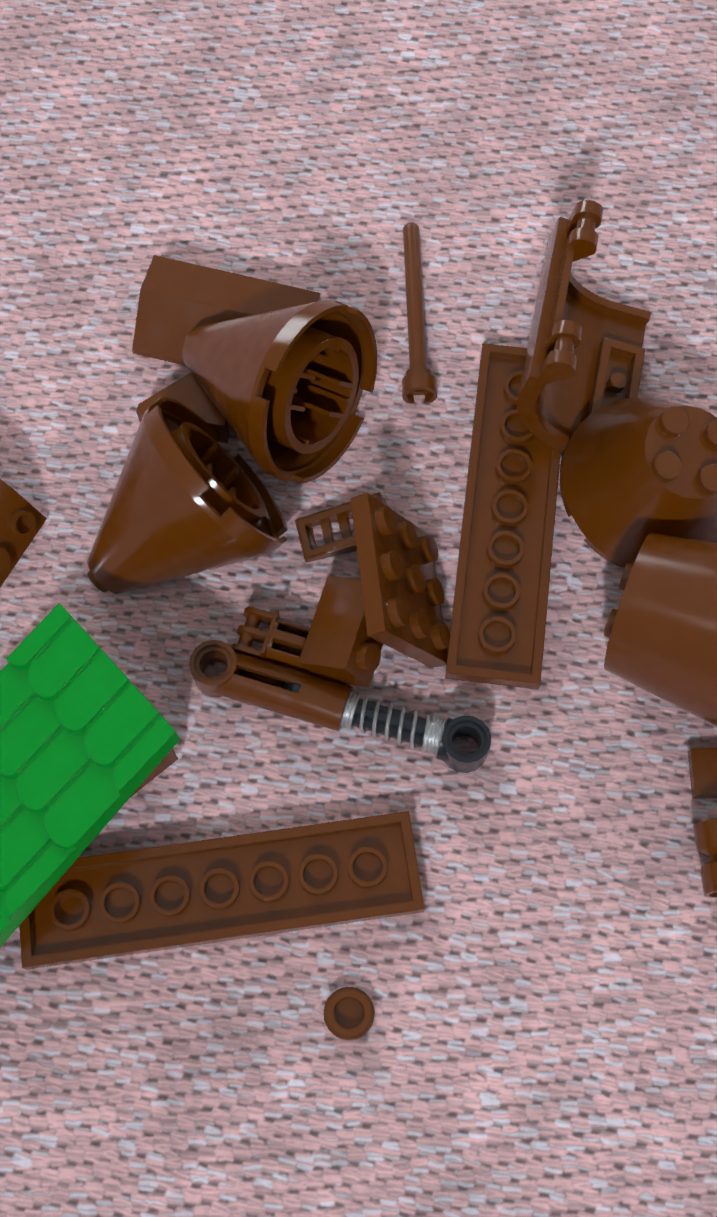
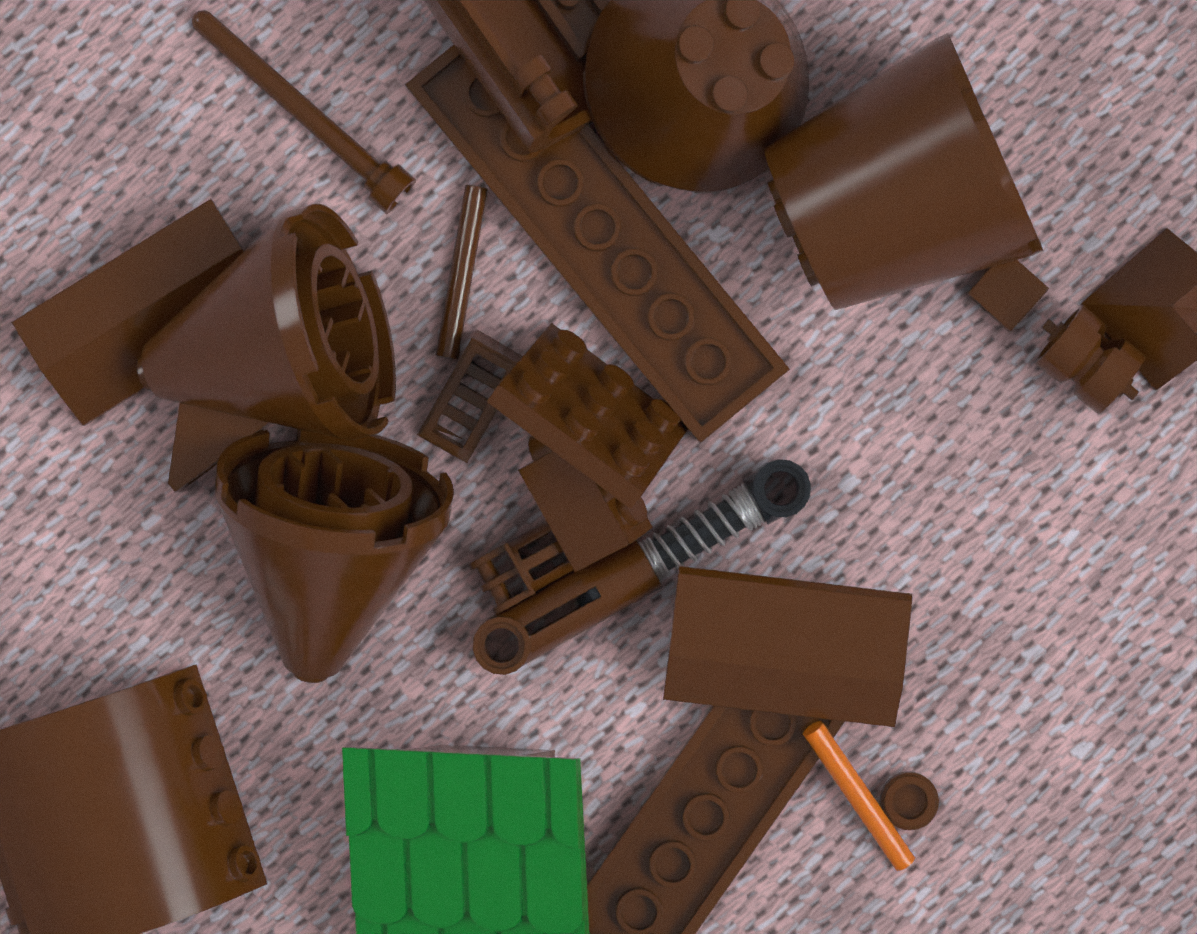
camera: 45 degrees left, 20 degrees up
(321, 974) = (858, 795): none -> orange bar
(374, 832) = (788, 646): none -> reddish brown slope
(413, 462) = (461, 271): none -> reddish brown bar

